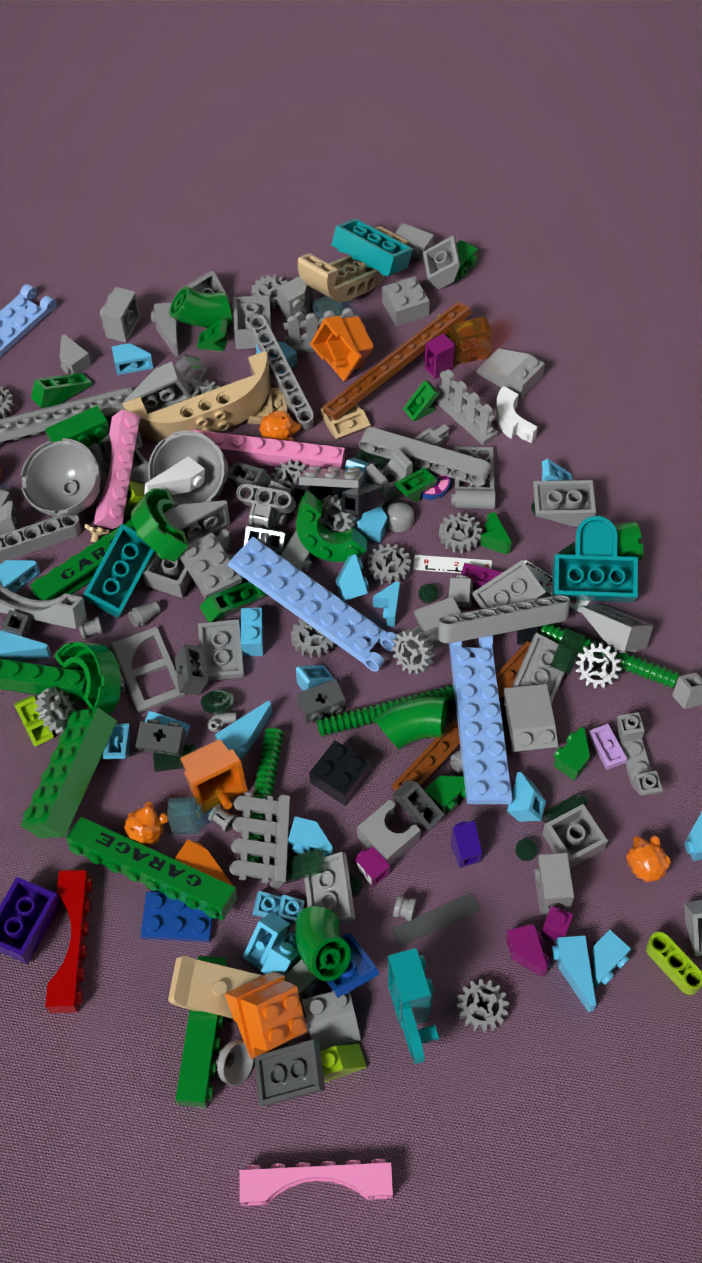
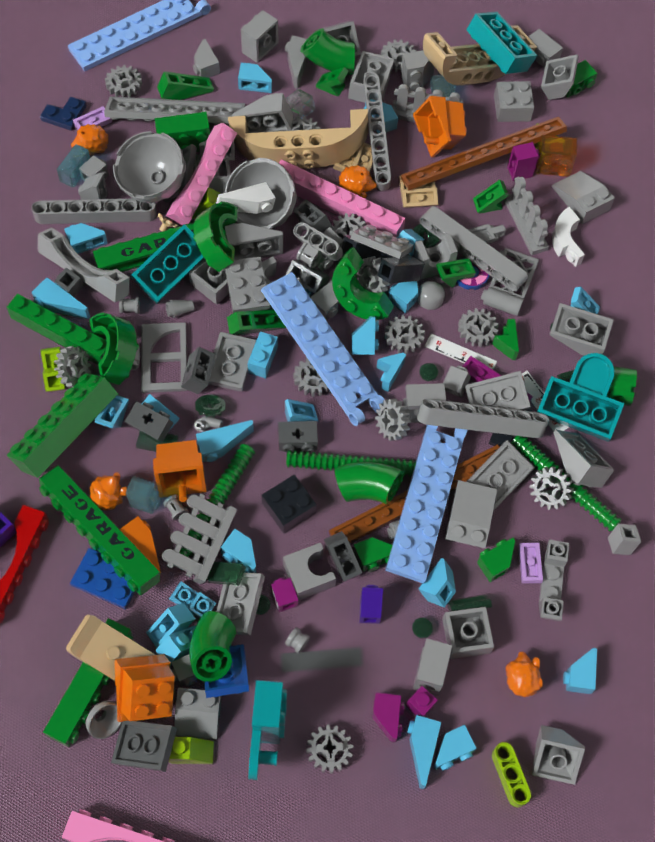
camera: 15 degrees right, 5 degrees up
(567, 651) = (528, 466): clear green tile -> none

